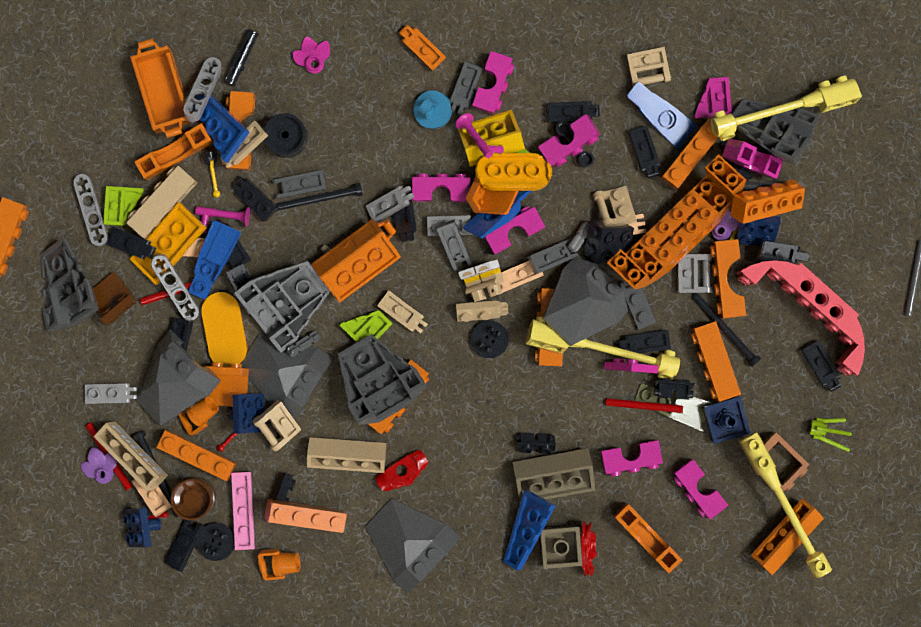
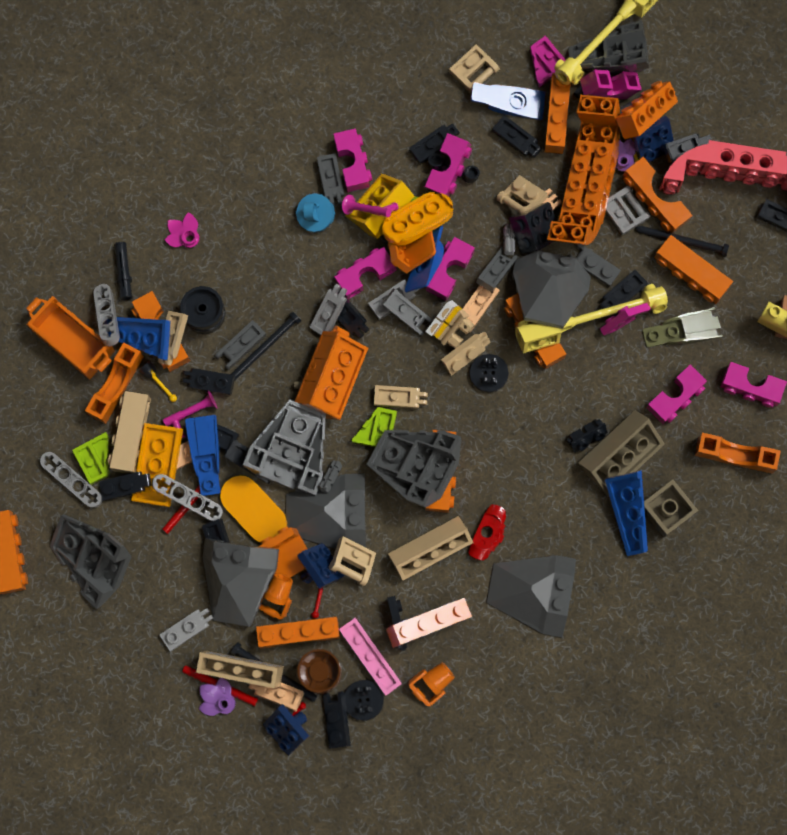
camera: 25 degrees left, 10 degrees down
(113, 298) = (139, 542): reddish brown bracket -> none
(422, 47) = (273, 168): orange hinge -> none
(588, 546) = (693, 494): red piece -> none
(644, 405) = (658, 344): red bar -> none
(666, 387) = (665, 318): black hinge -> none
(738, 425) = (739, 308): dark blue plate -> none

